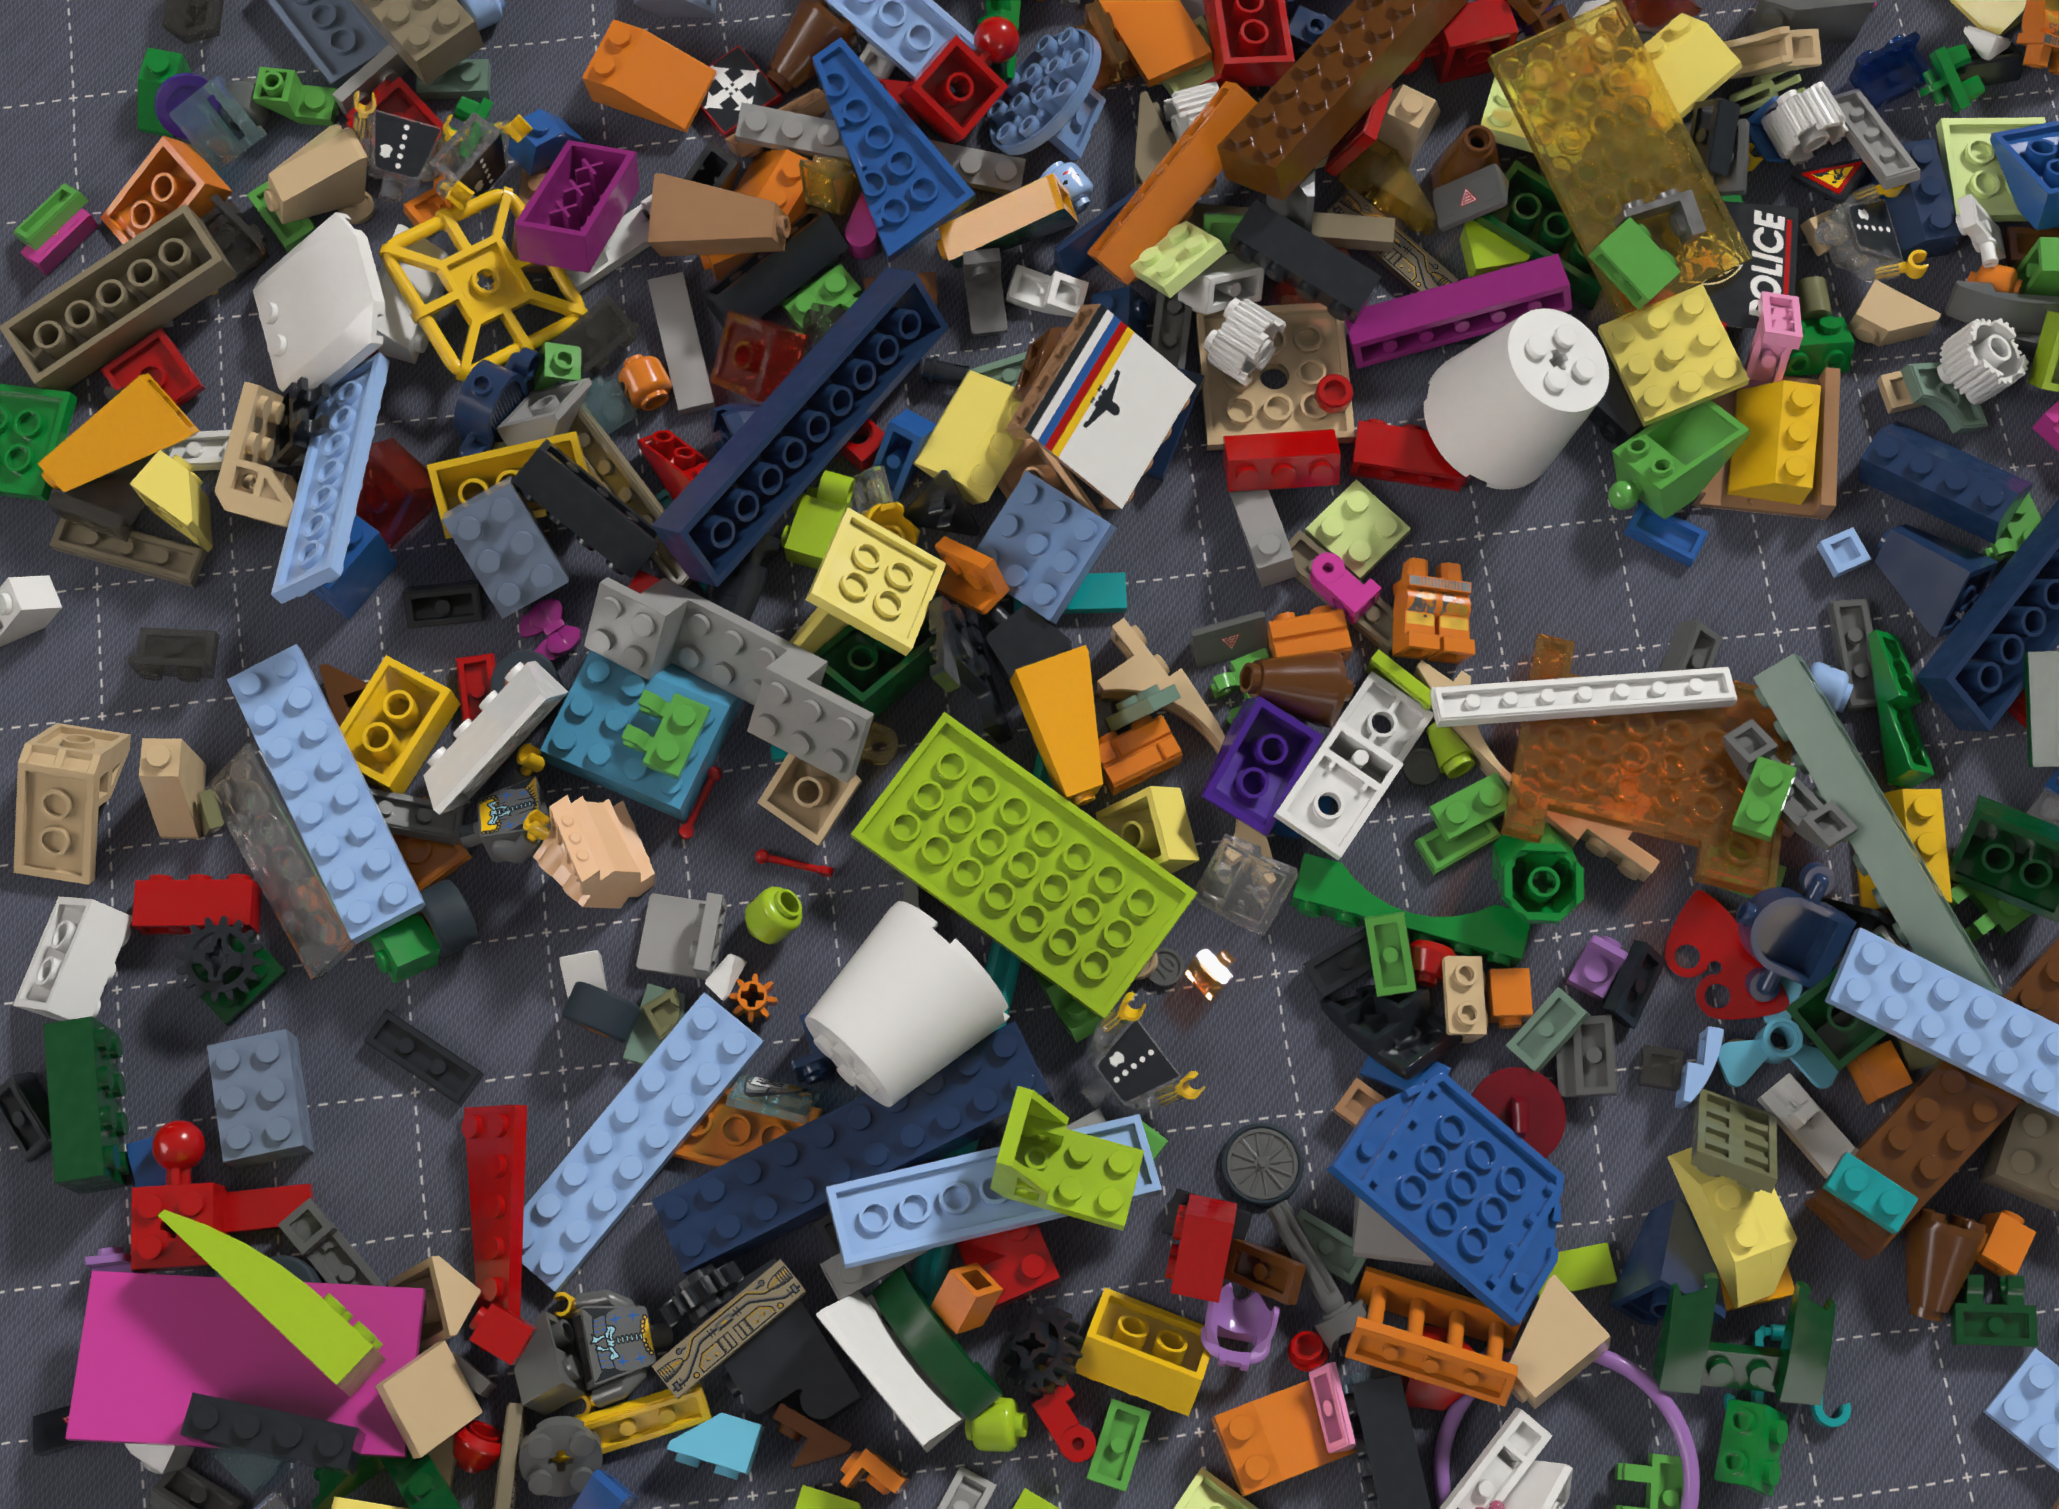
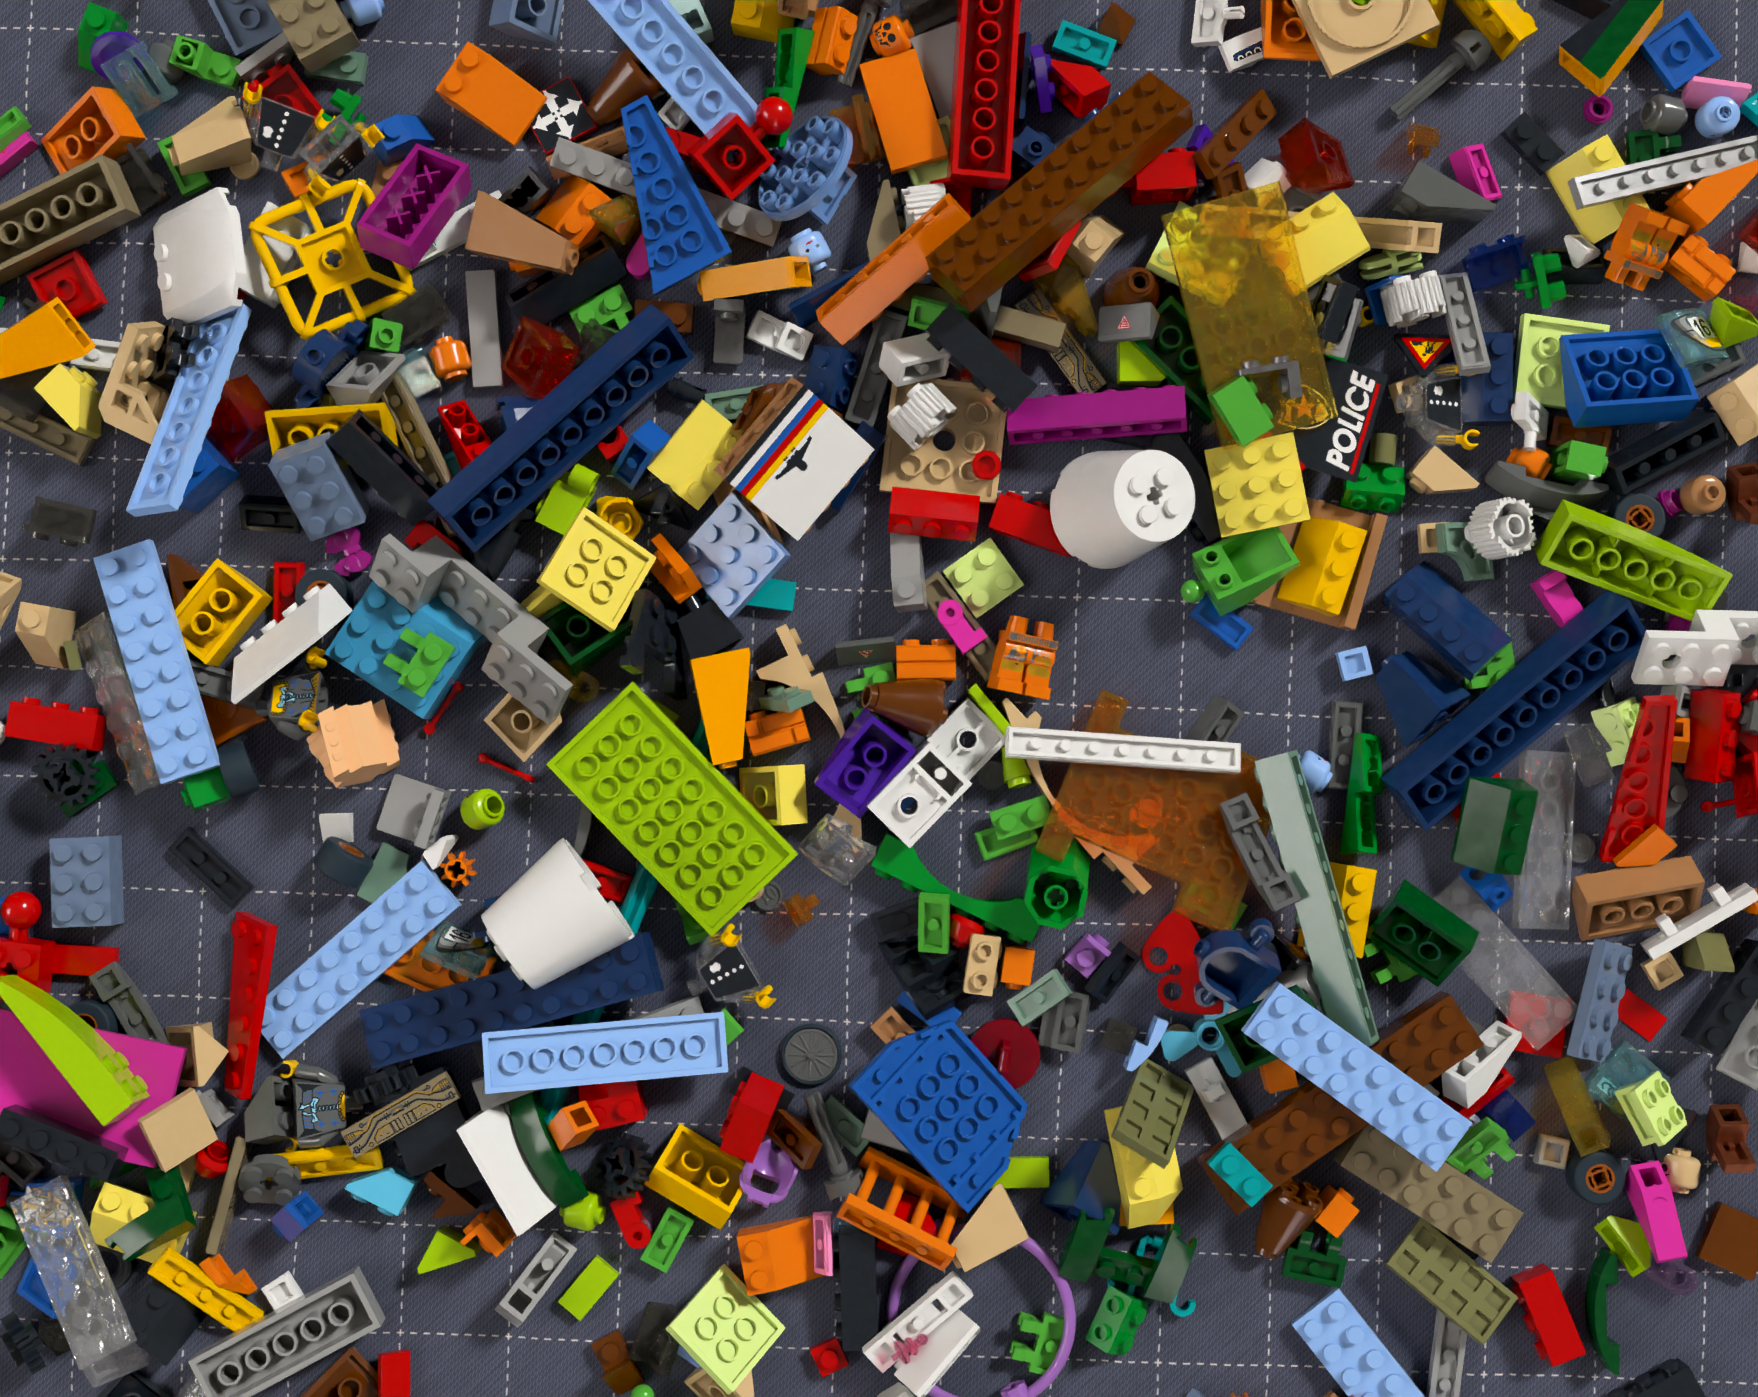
camera: 10 degrees right, 15 degrees up
(501, 1333) = (236, 1090): red brick -> none
(663, 1013) = (390, 869): olive tile -> none
(871, 488) = (612, 481): clear plate -> none
(1062, 1167) = (659, 1049): lime bracket -> none
(1178, 258) = (882, 337): yellowish green plate -> none
(1307, 1351) = (815, 1197): red plate -> none
(1764, 799) = (1238, 860): bright green plate -> none
(1774, 338) = (1340, 486): bright pink bracket -> none

